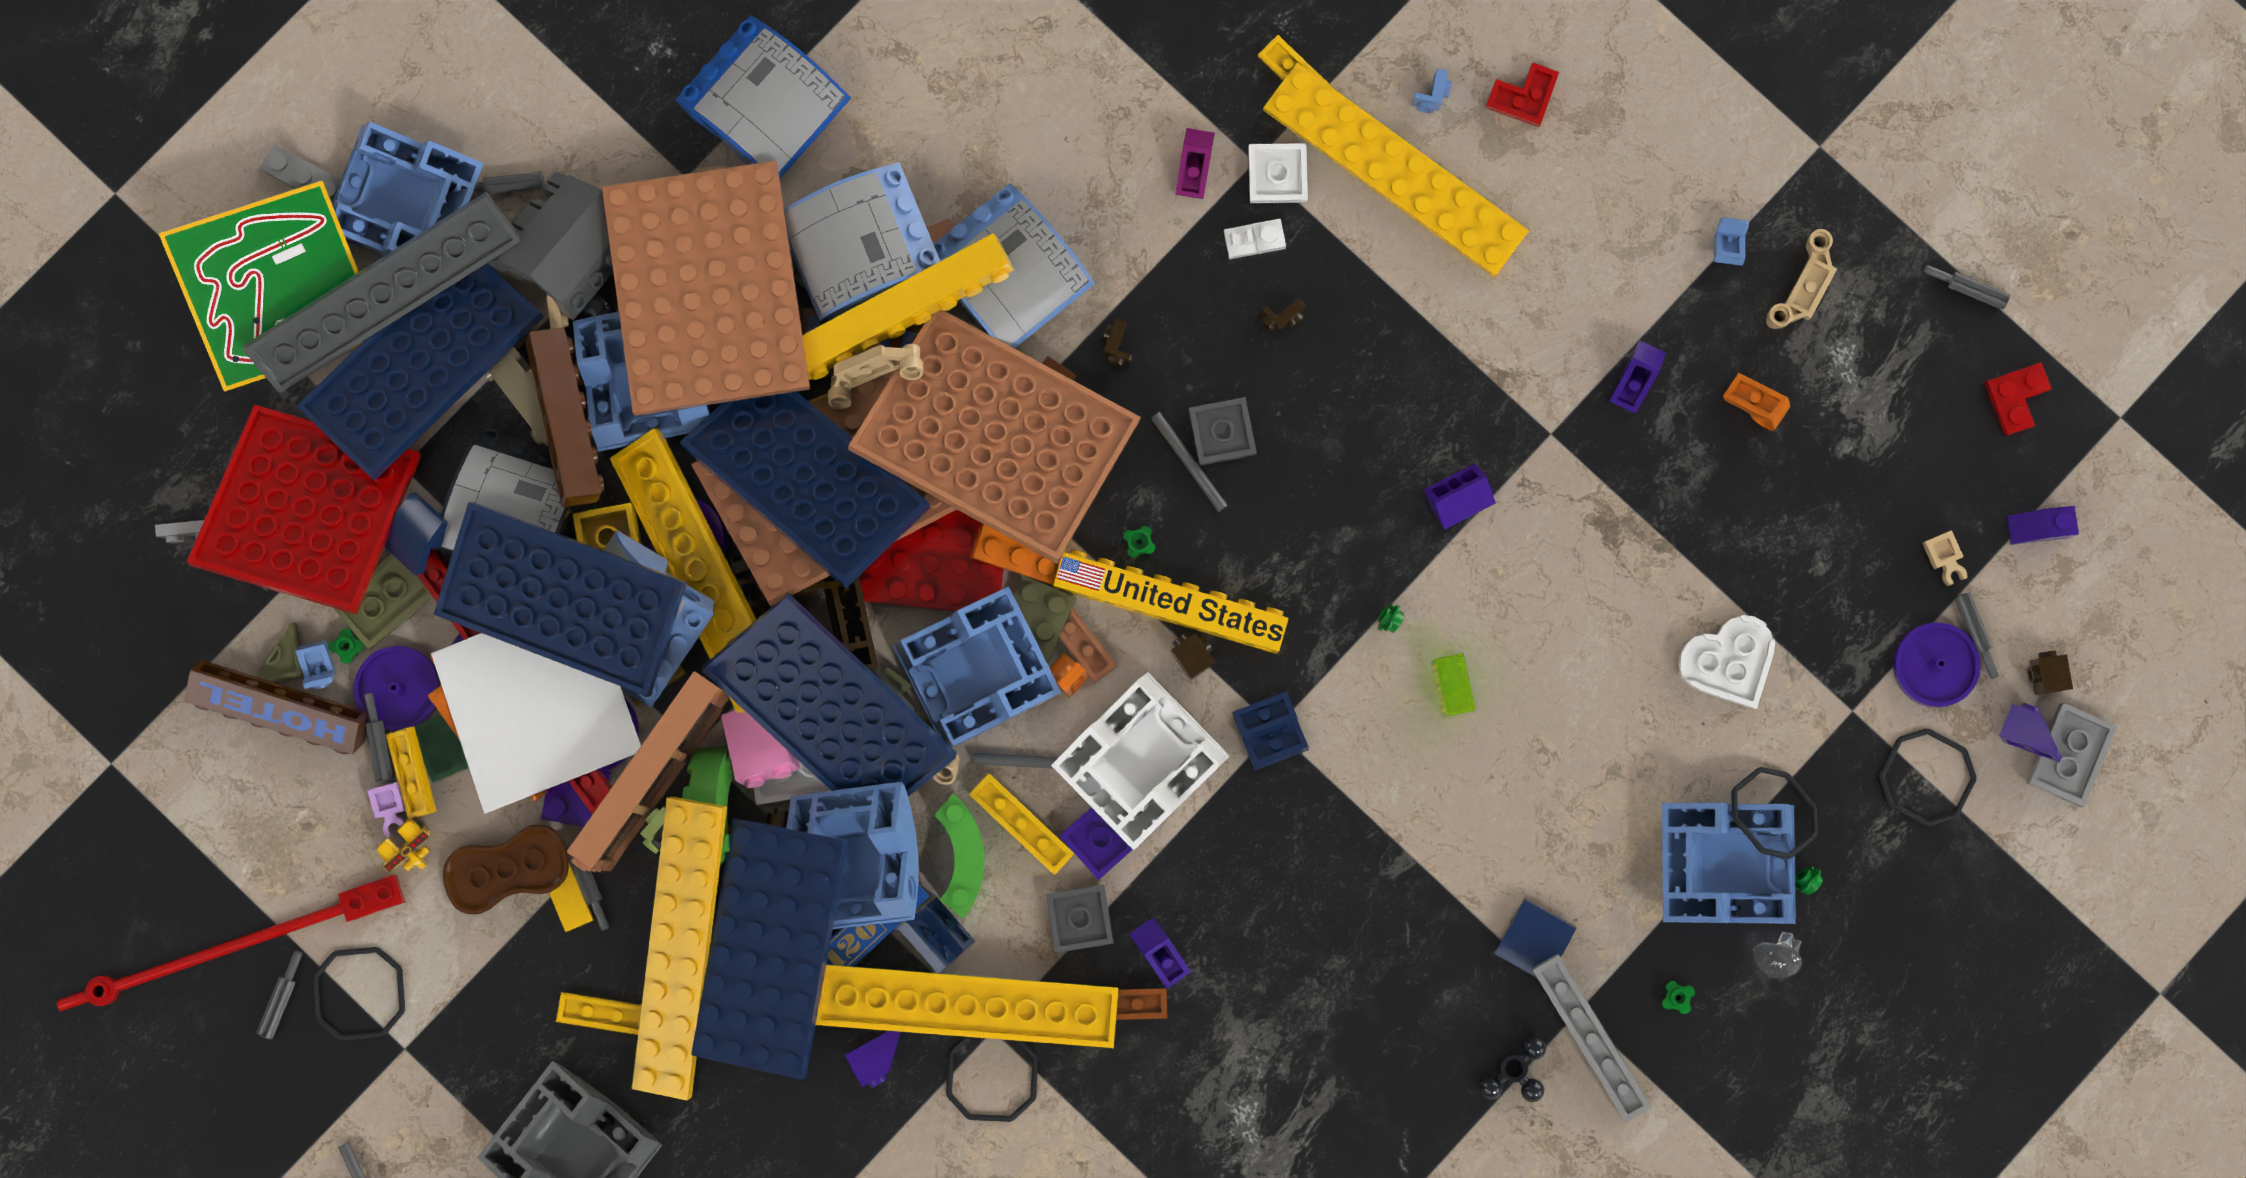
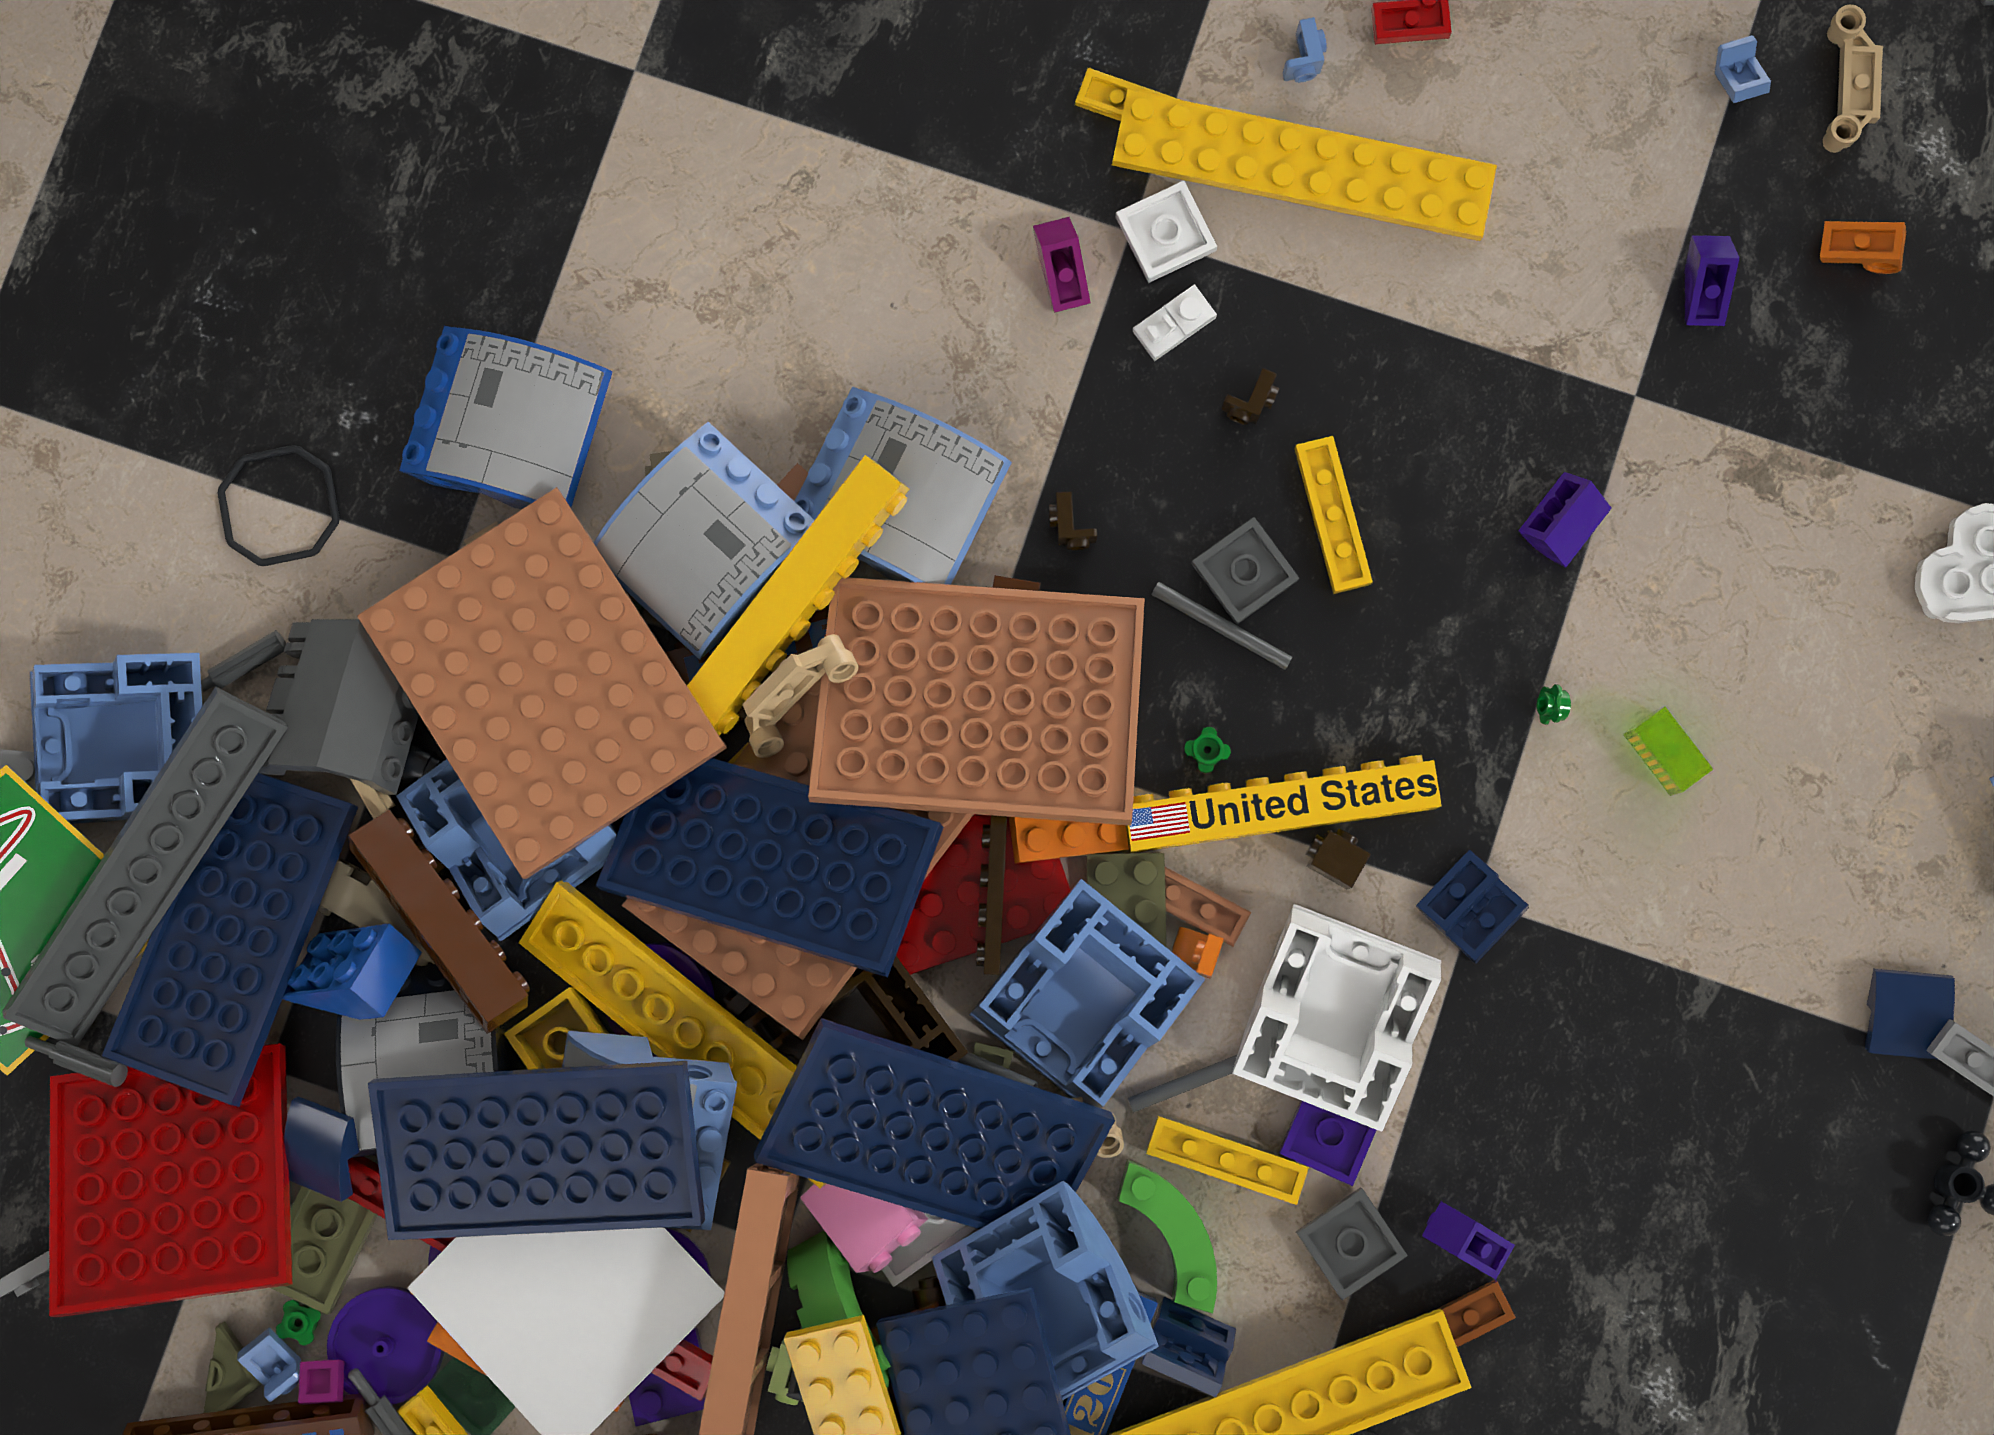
camera: 15 degrees left, 0 degrees up
(280, 403) = (81, 1061): none -> dark grey axle
(344, 691) = (321, 1381): none -> magenta plate
(491, 425) = (353, 971): none -> blue slope
(574, 125) = (267, 454): none -> black piece
(938, 583) = (992, 912): none -> dark brown plate
(1301, 420) = (1333, 514): none -> yellow plate

